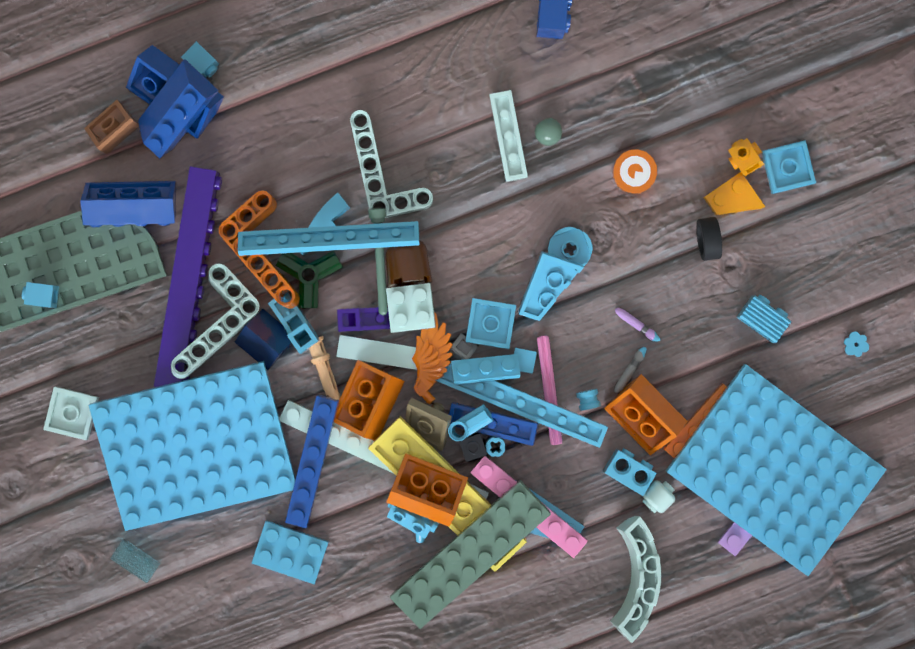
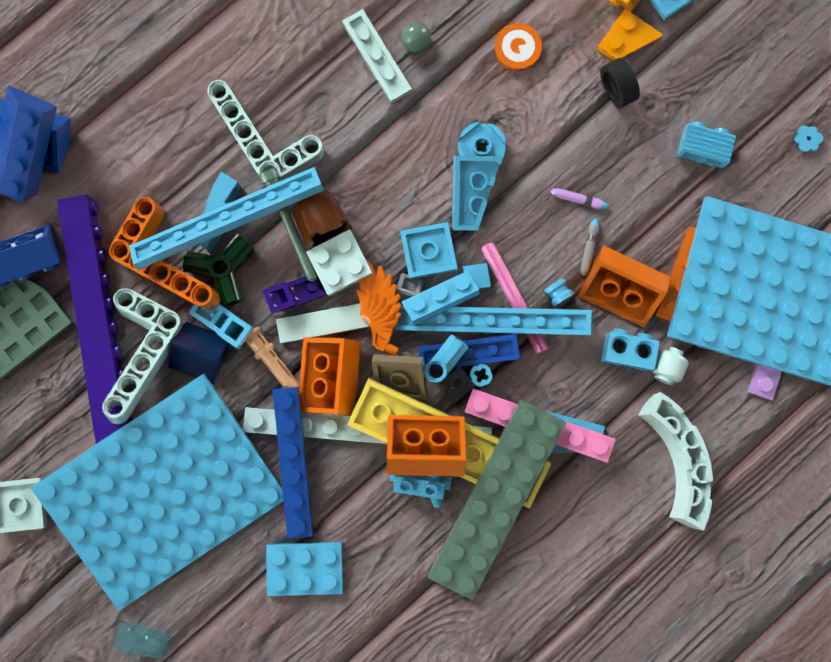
camera: 20 degrees left, 5 degrees down
(201, 60) = (35, 87): medium azure brick -> none

